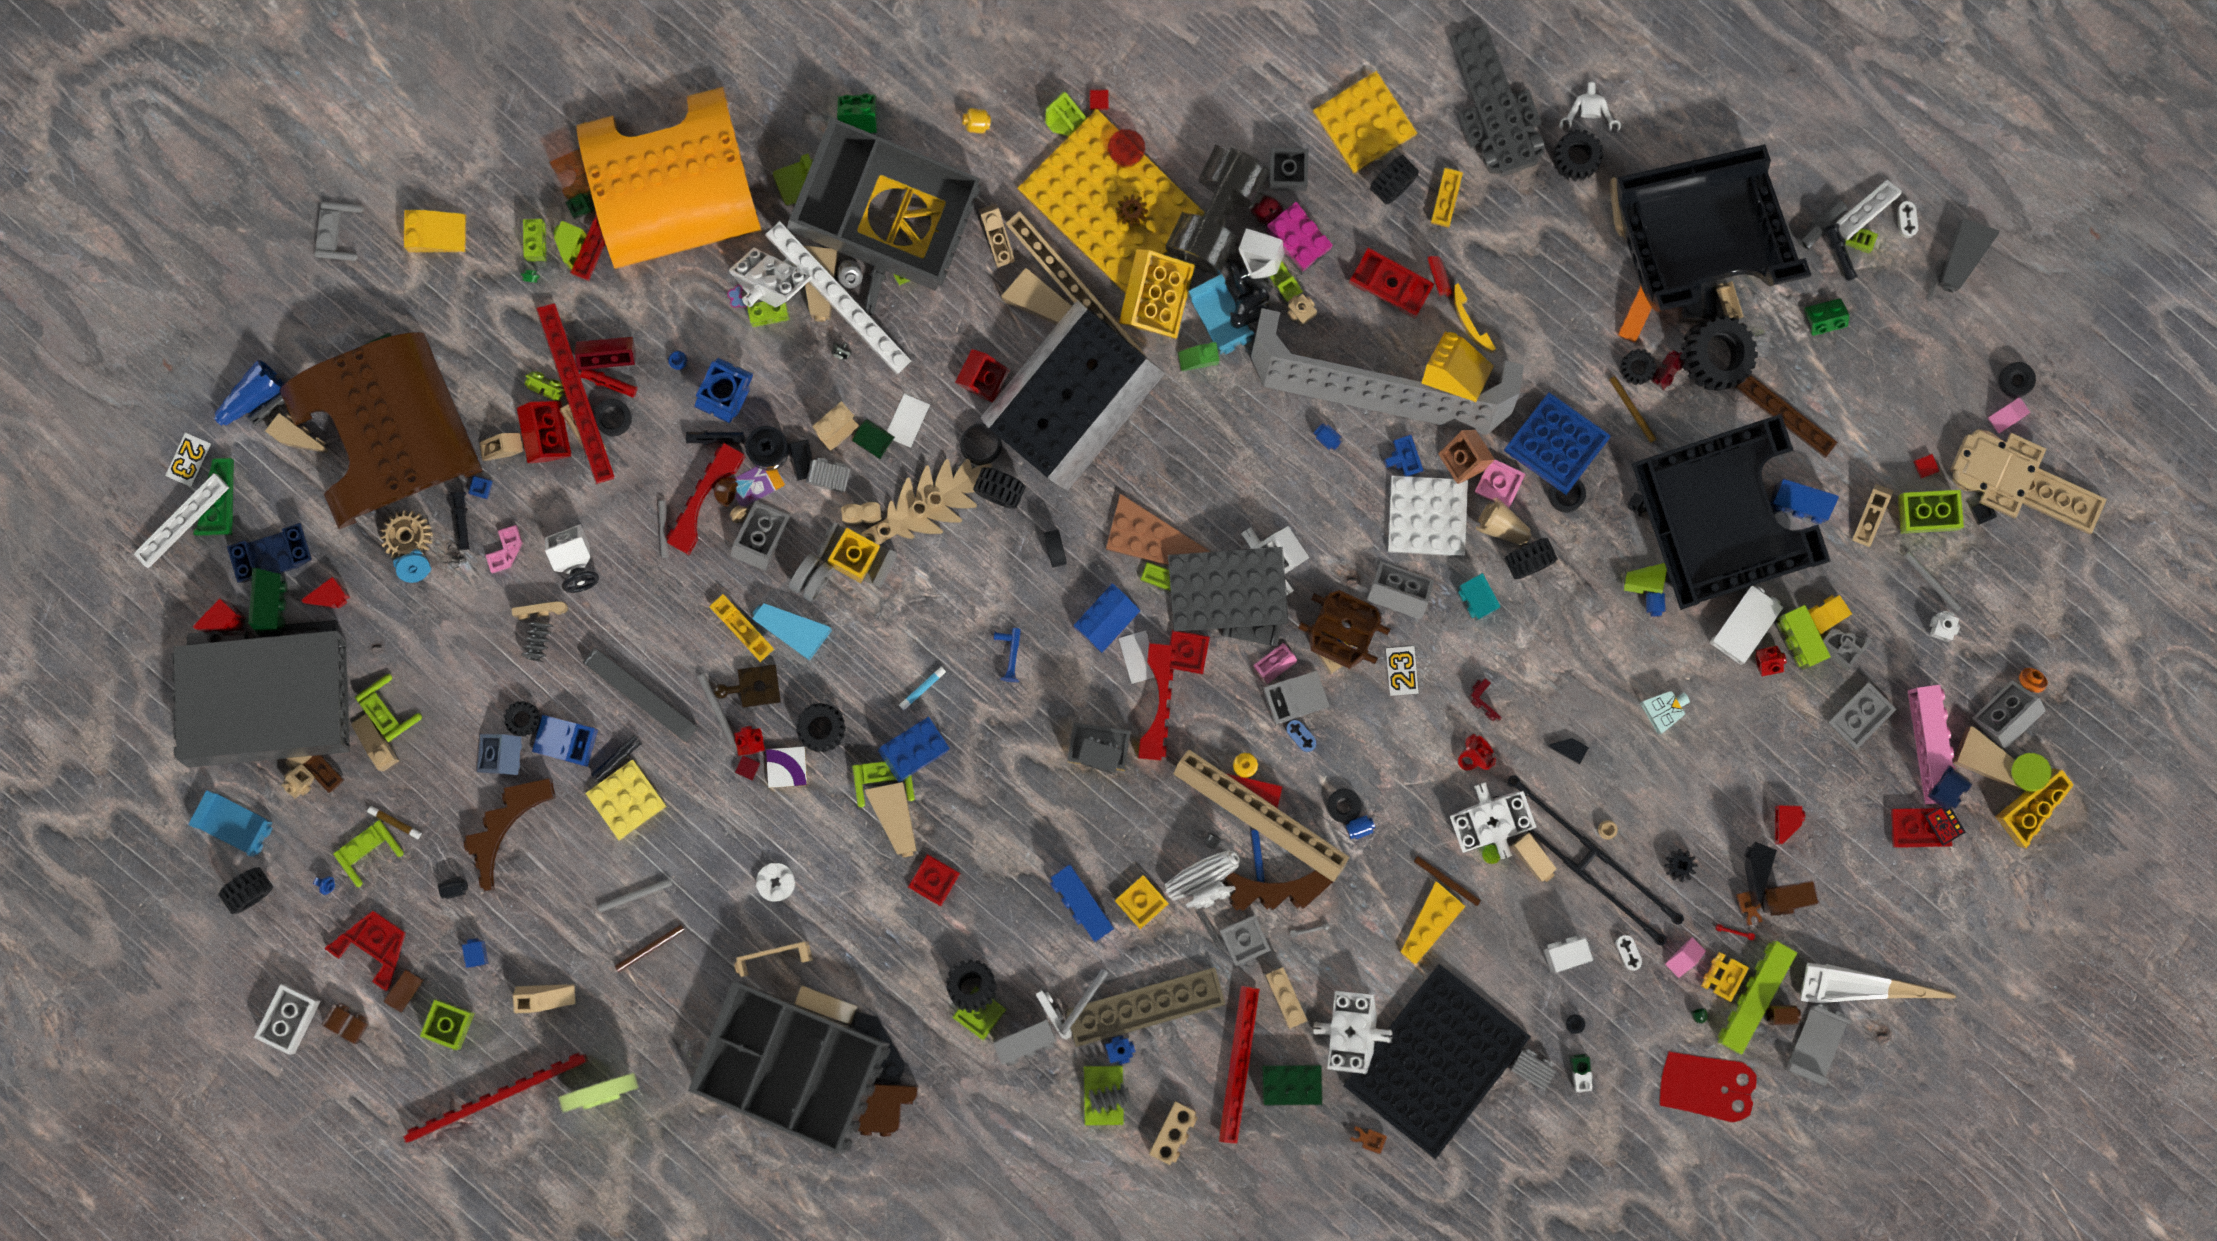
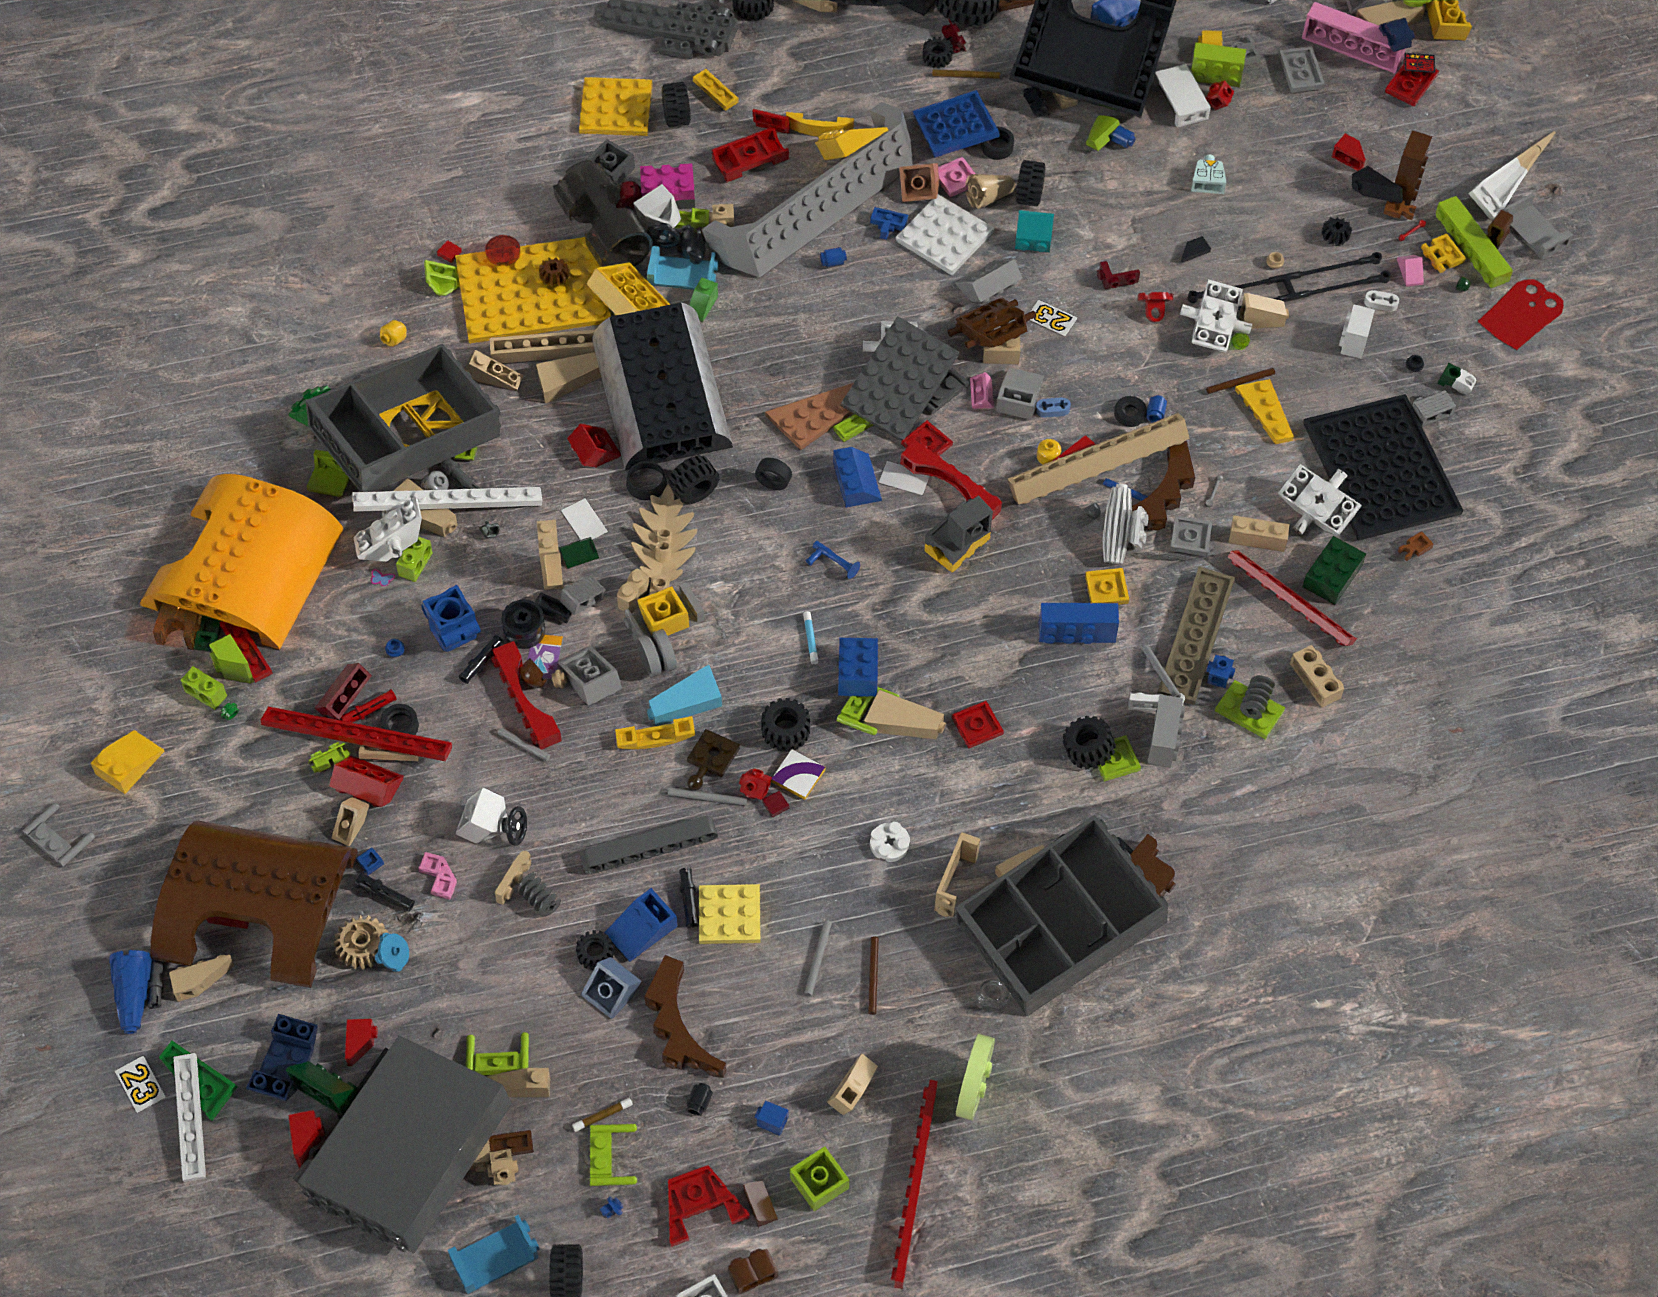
camera: 55 degrees left, 25 degrees down
(1635, 317) = (897, 28): orange slope -> none

